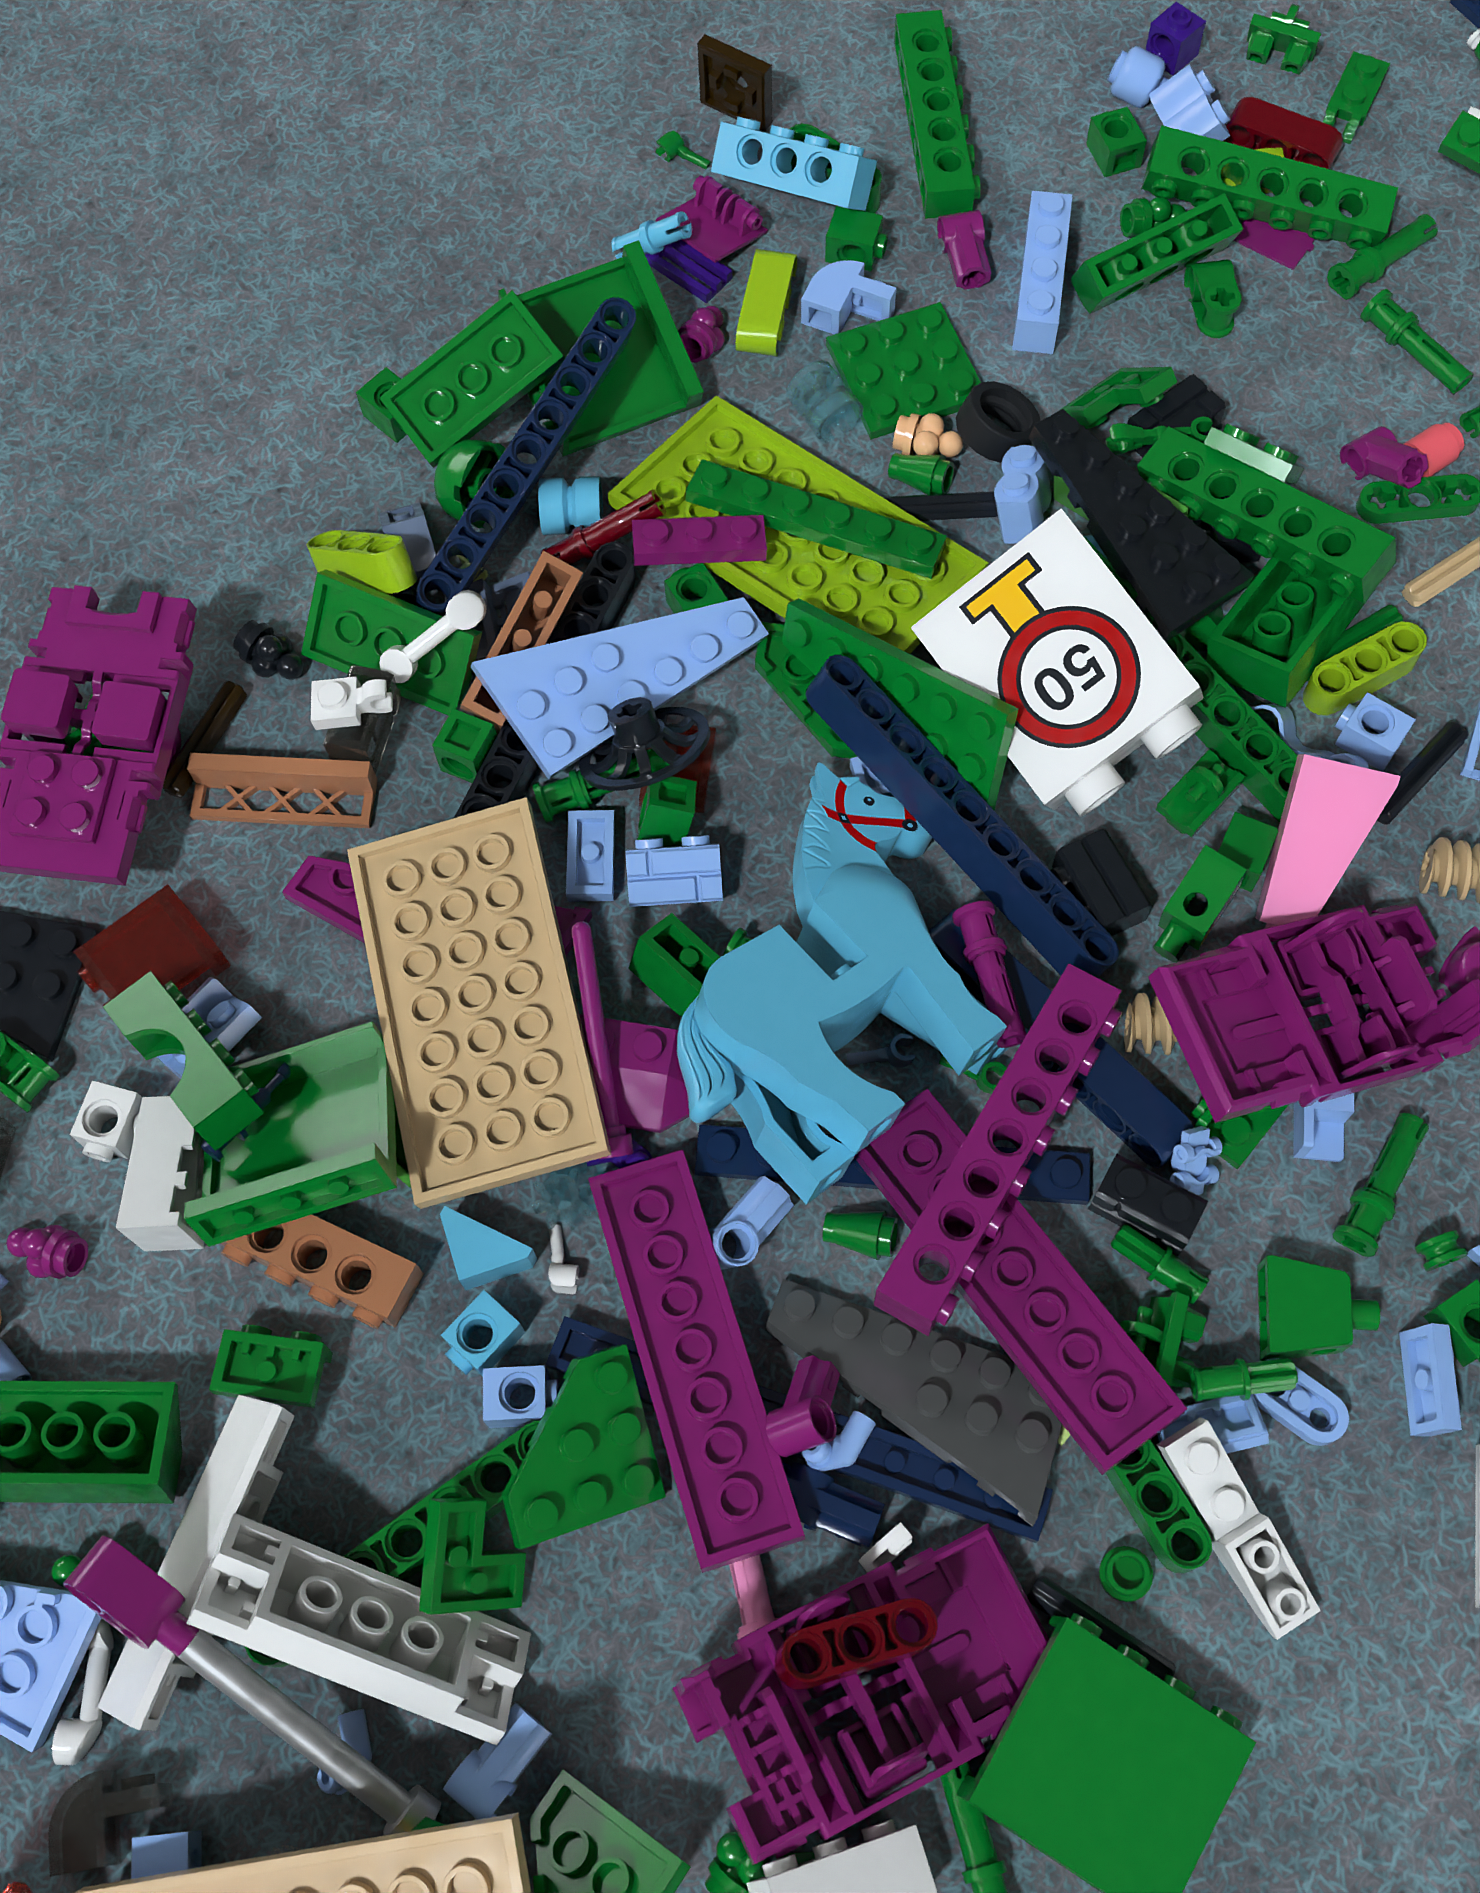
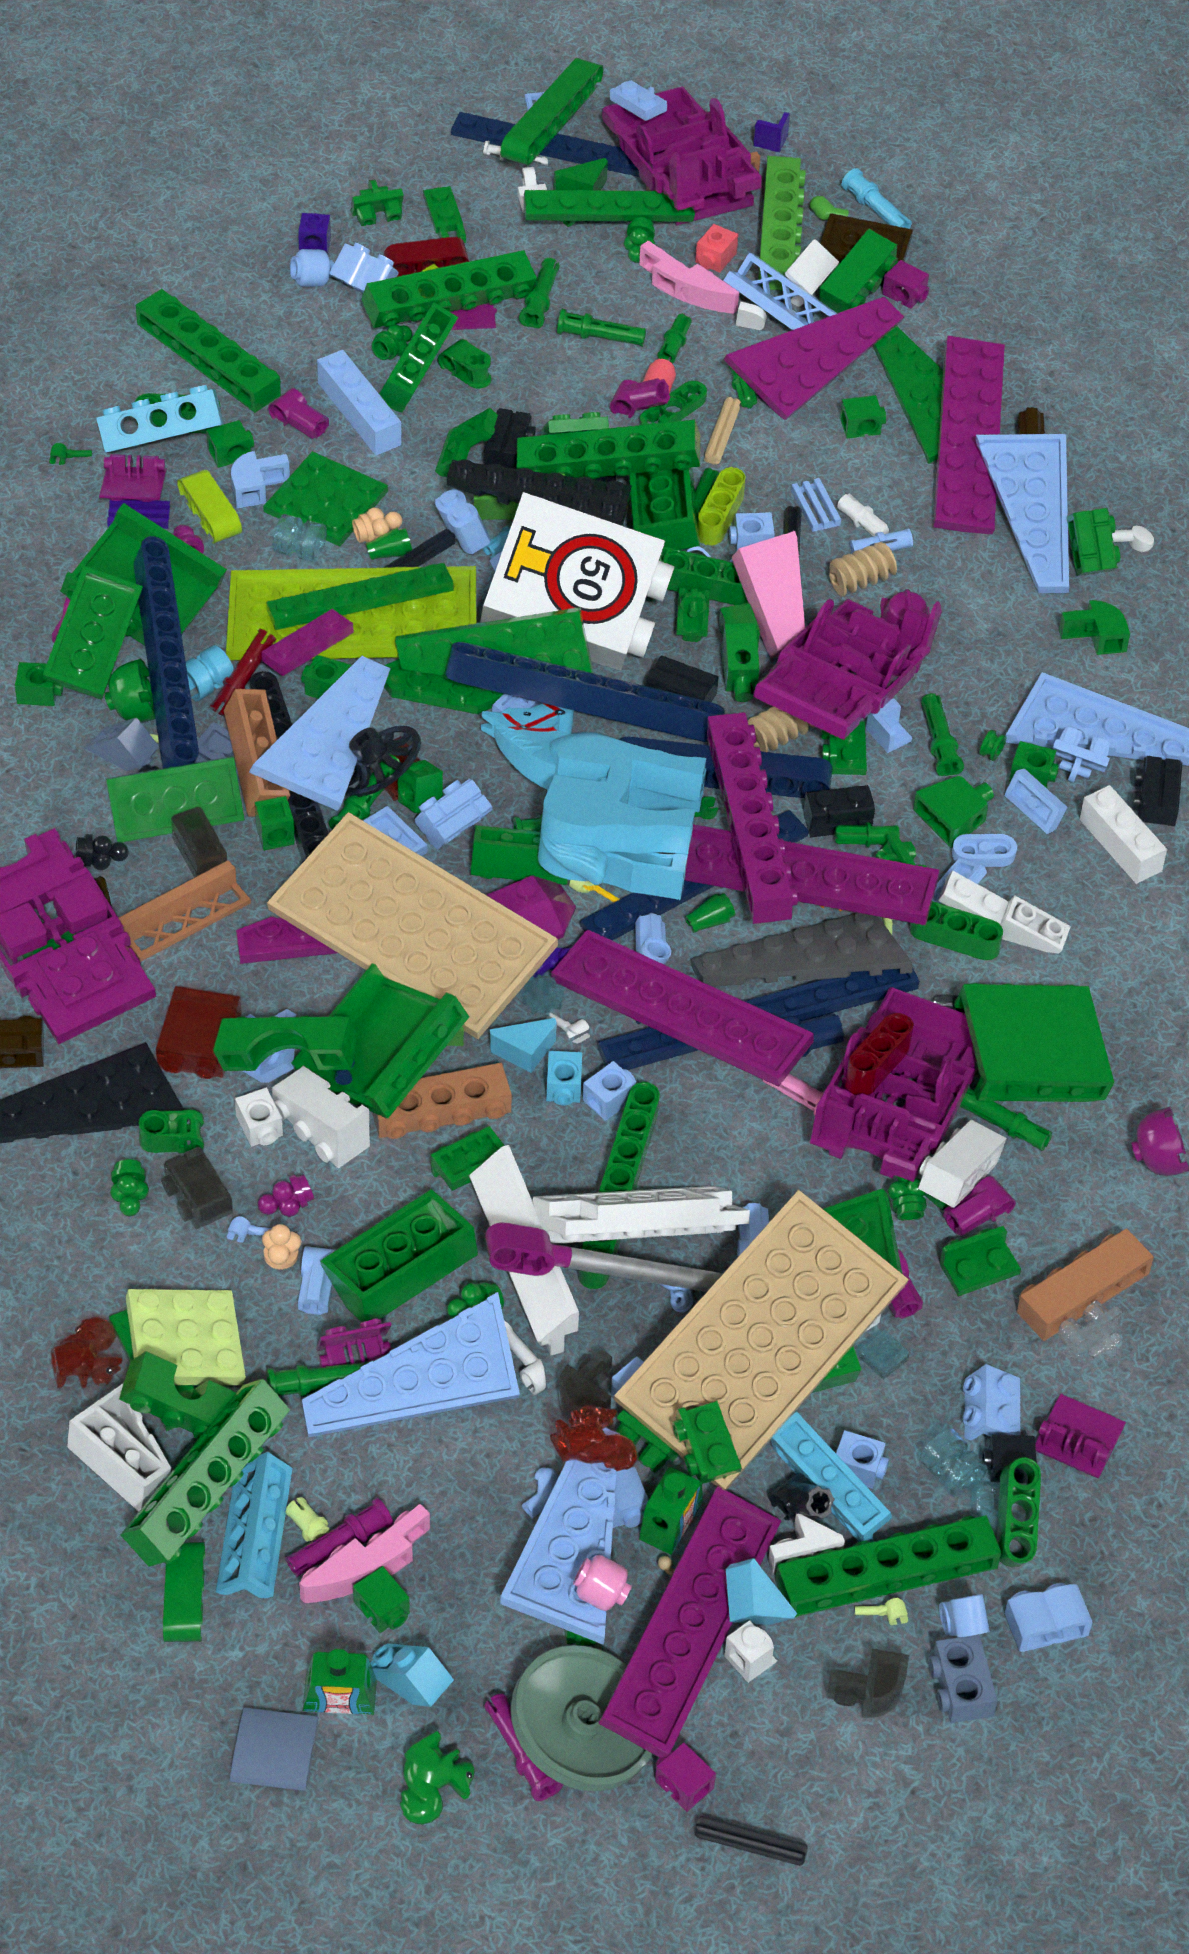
camera: 45 degrees left, 15 degrees down
(342, 700) = (191, 833): white plate -> none
(364, 557) = (126, 757): lime beam -> none
(455, 1568) = (661, 1168): green plate -> none
(462, 613) = (216, 747): white bar -> none
(586, 1454) = (673, 1081): green plate -> none
(619, 1140) = (486, 883): magenta piece -> none
(655, 235) = (107, 506): medium azure pin -> none
(718, 76) = (69, 407): dark brown piece -> none
(807, 1412) = (762, 988): magenta piece -> none
(844, 1448) = (792, 1002): light blue arm -> none
(888, 1548) = (853, 1025): white tile -> none
(986, 954) = (658, 739): magenta pin -> none
(1003, 403) = (411, 493): black tyre -> none
(1116, 141) = (333, 310): green brick -> none
(1125, 1574) = (971, 970): green plate -> none
(1129, 437) = (500, 455): green piece -> none
(1190, 1160) = (840, 774): light blue piece -> none
(1242, 1379) = (952, 850): green axle -> none

